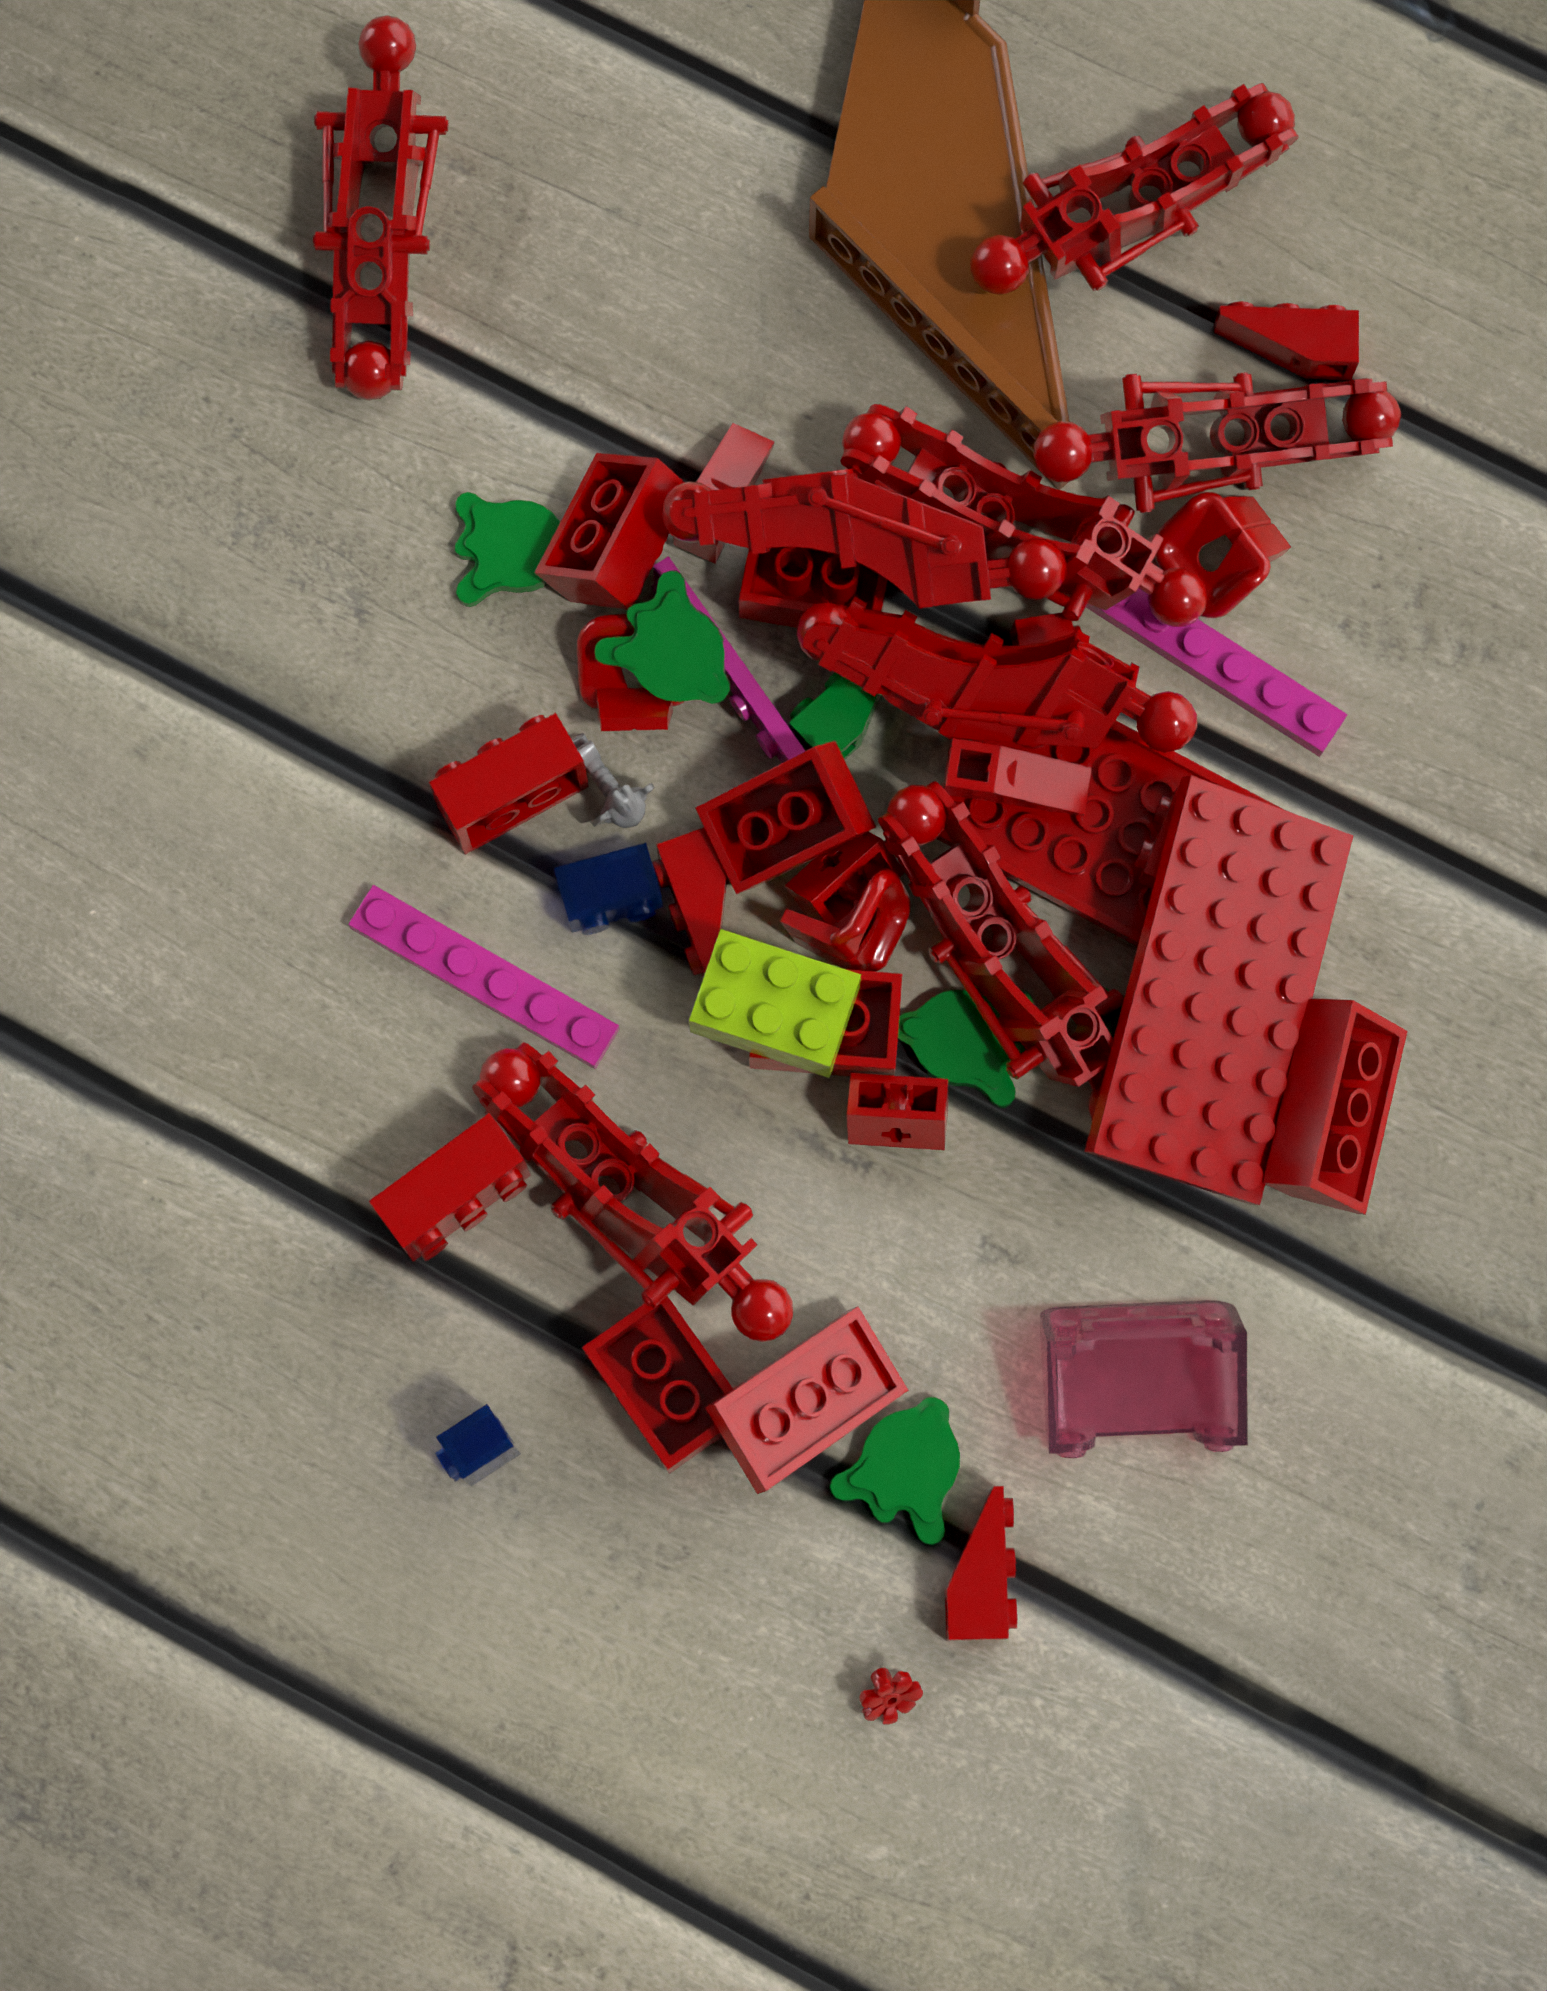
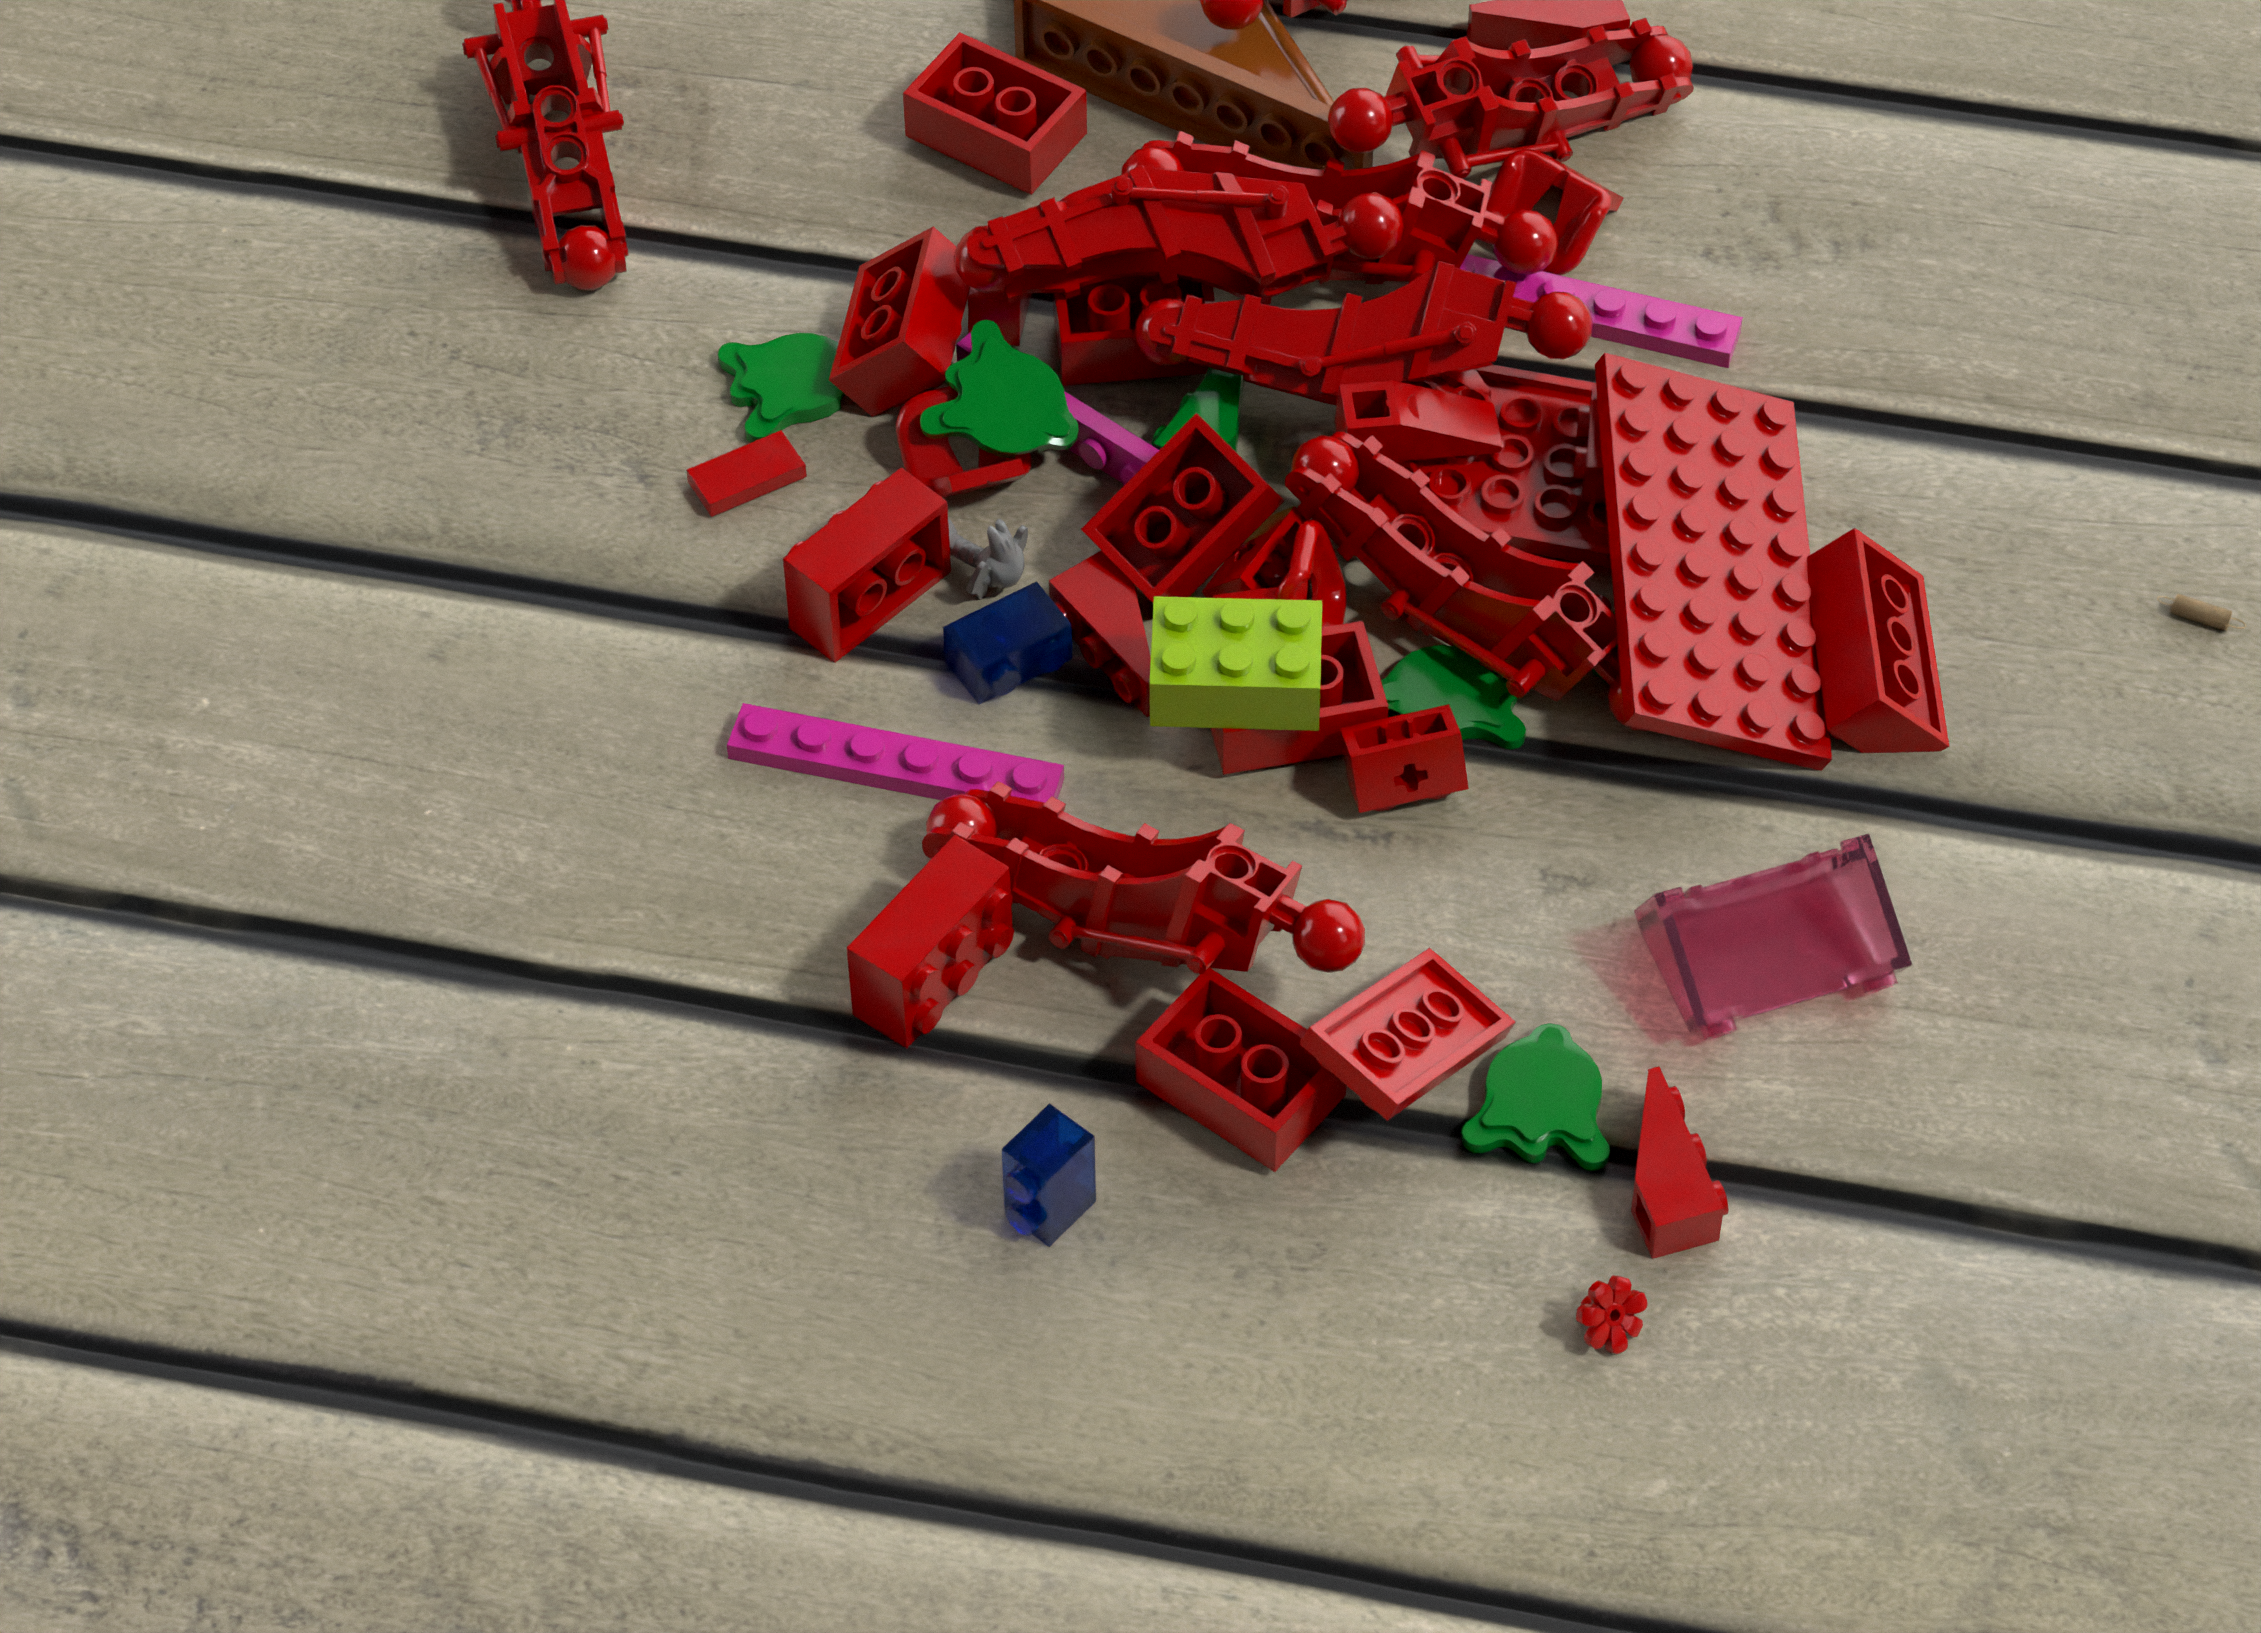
camera: 15 degrees left, 25 degrees down
(444, 637) = (746, 473): none -> red tile
(765, 309) = (995, 113): none -> red brick

